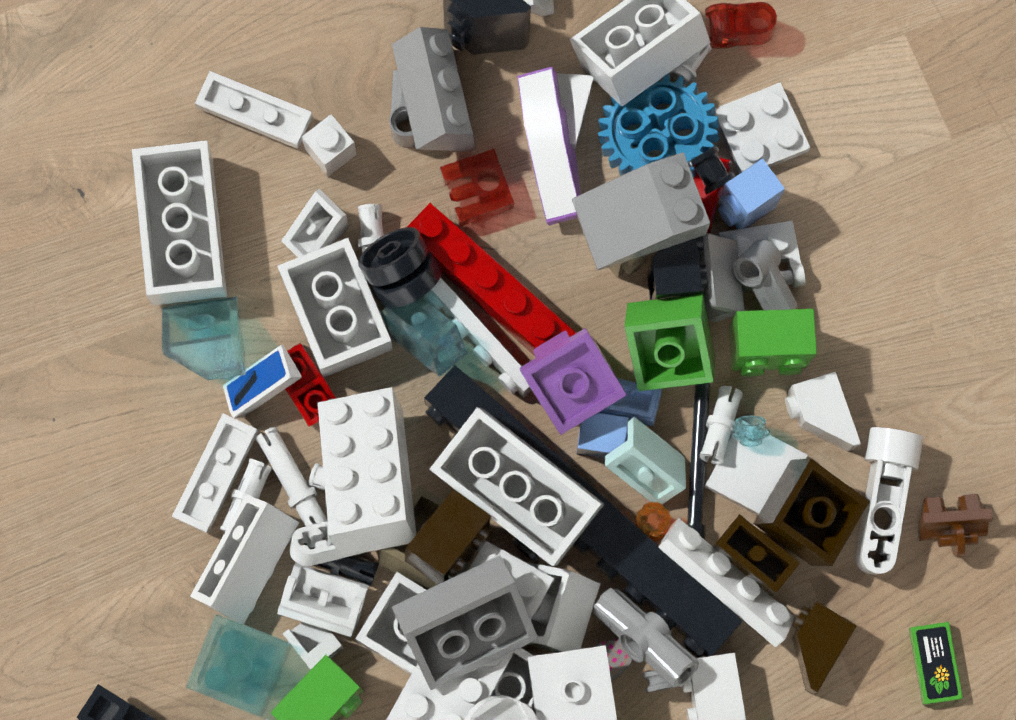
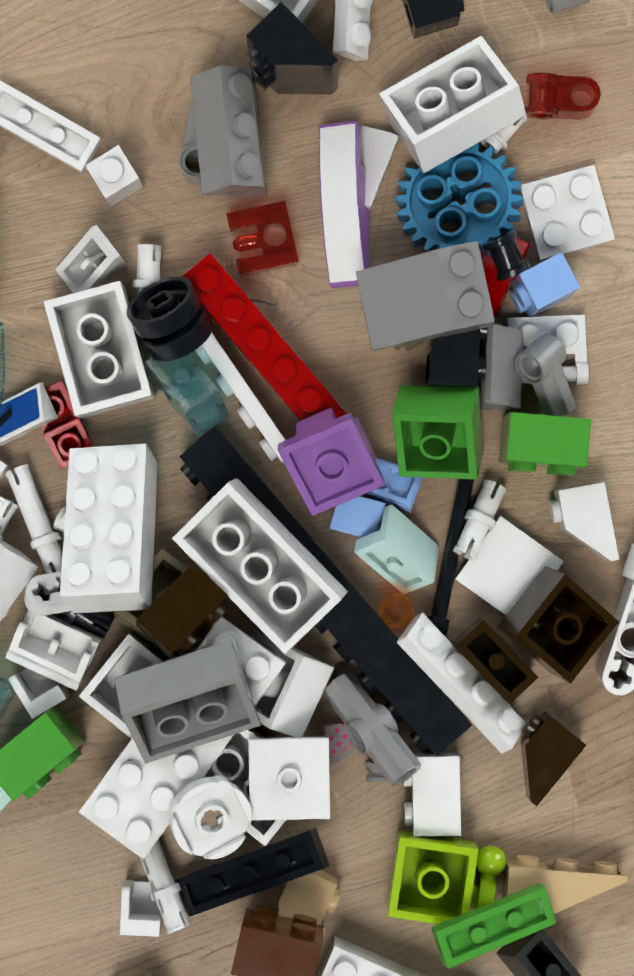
camera: 15 degrees right, 10 degrees up
(750, 430) = (508, 531): clear light blue plate -> none

